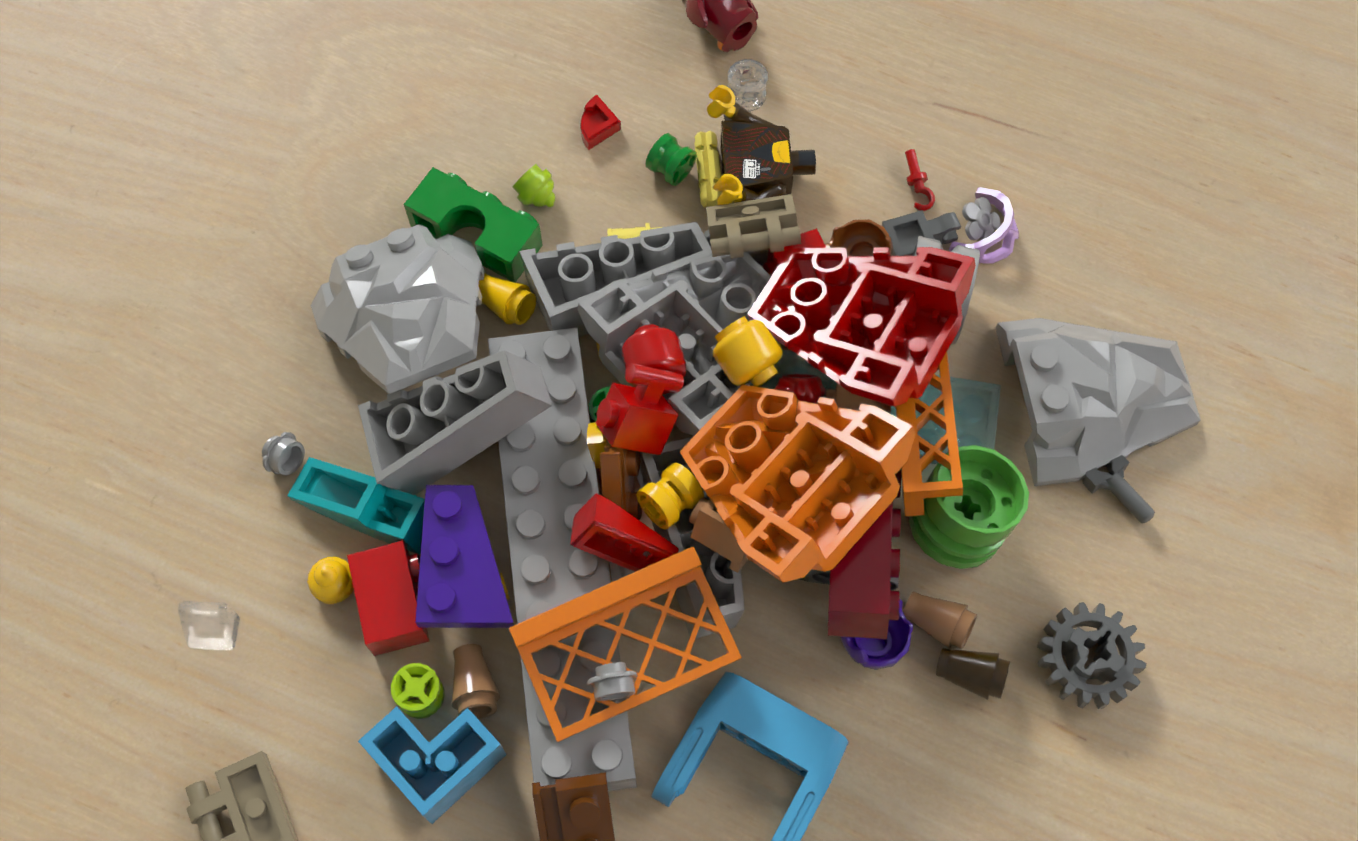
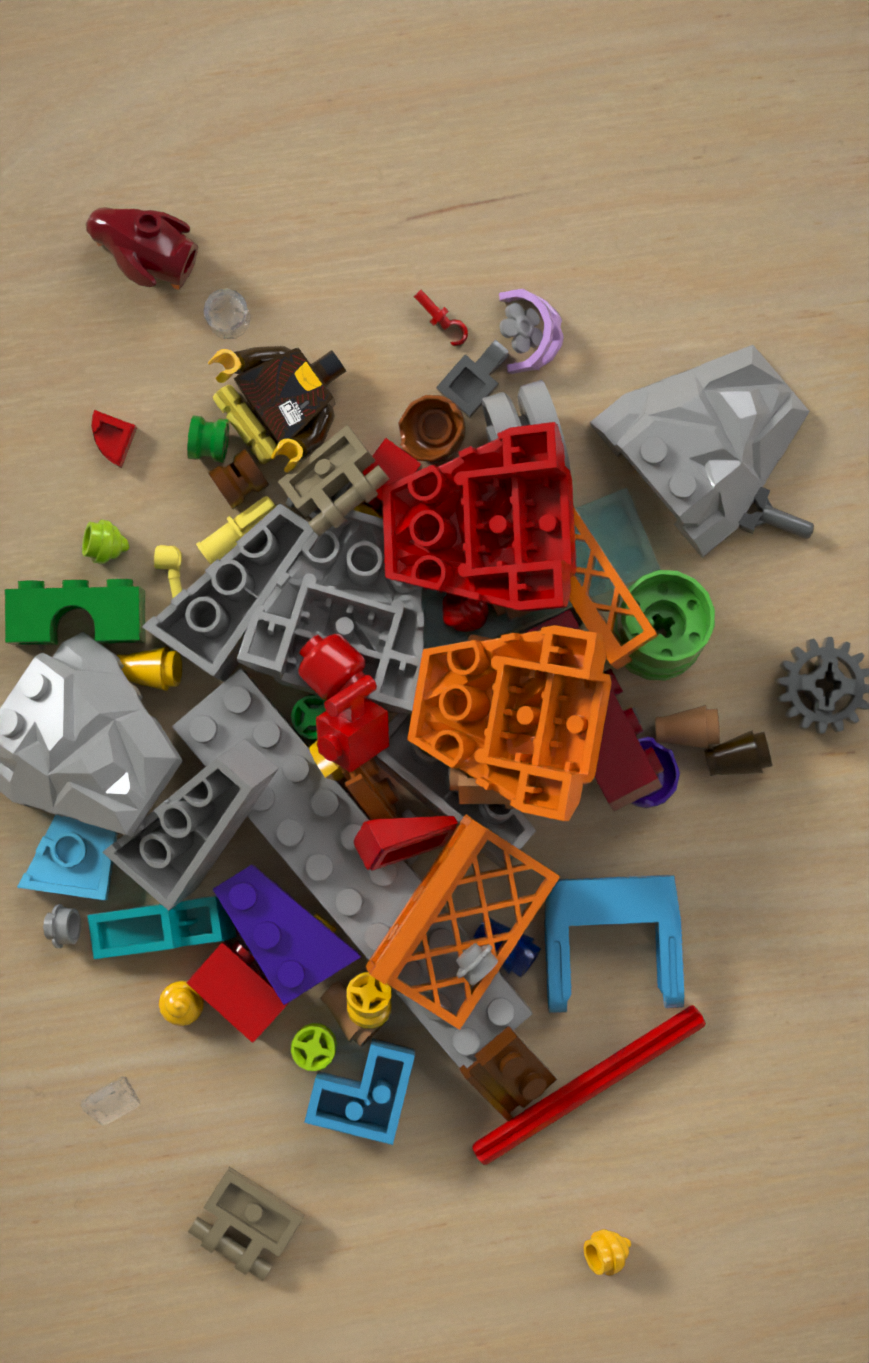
camera: 30 degrees left, 20 degrees up
(329, 405) = (71, 860): none -> medium azure wing
(491, 658) = (367, 990): none -> yellow wheel
(577, 228) = (169, 559): none -> light yellow hand
(656, 720) = (521, 956): none -> clear blue cone
(670, 495) = (419, 789): yellow wheel -> none
(675, 200) = (238, 479): none -> reddish brown wheel
(747, 352) = (410, 618): yellow head -> none

